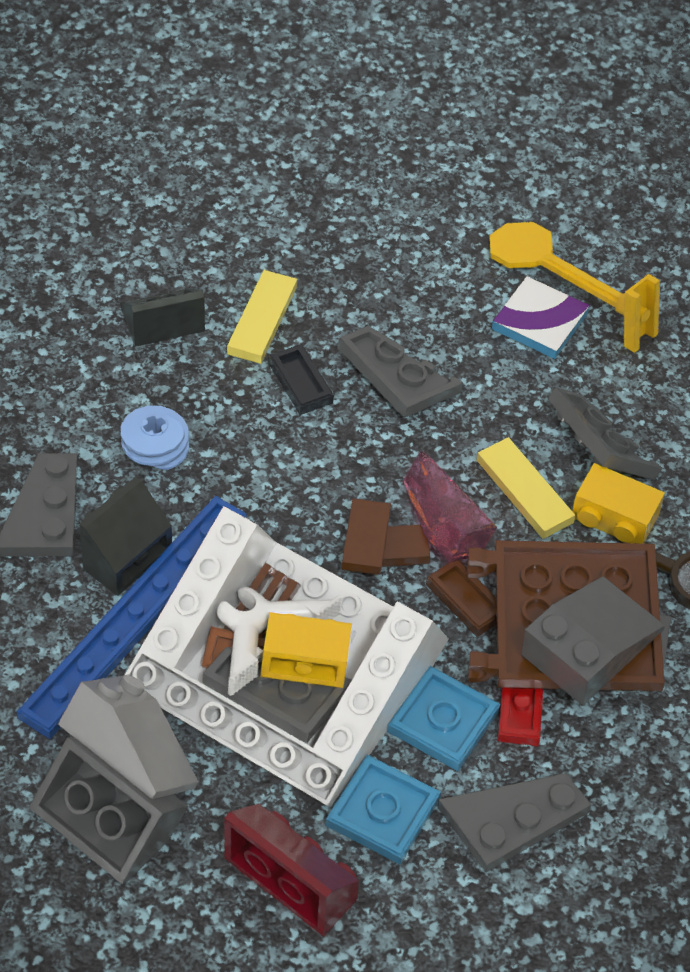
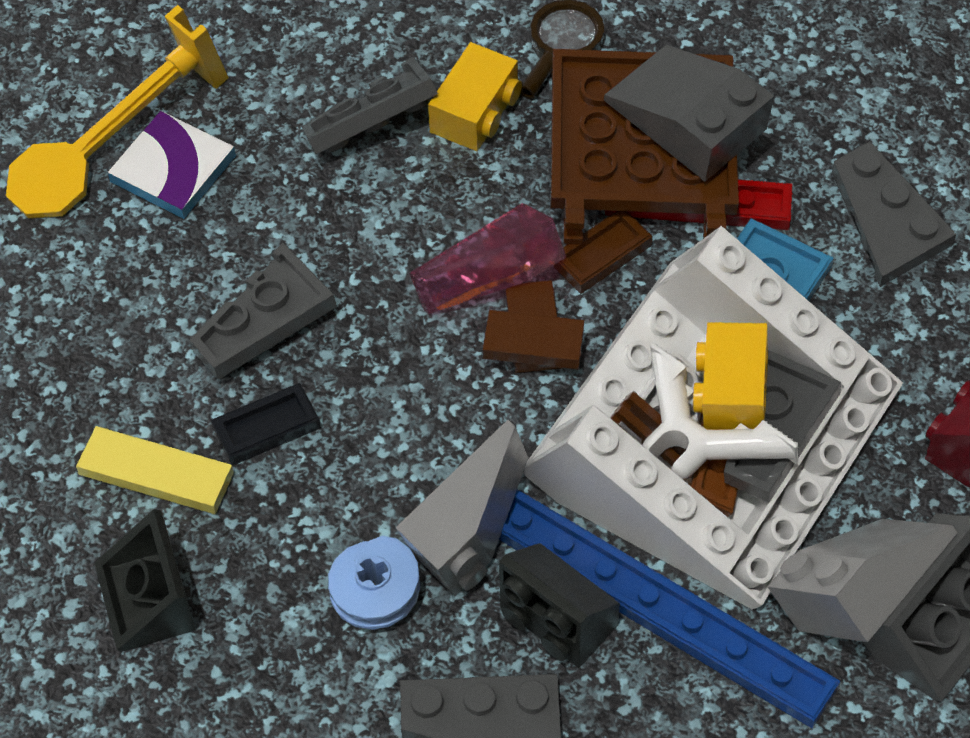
camera: 85 degrees left, 5 degrees up
(191, 473) = (464, 516): none -> light grey slope
(383, 809) = (899, 329): dark azure tile -> none
(525, 488) = (440, 188): light yellow tile -> none

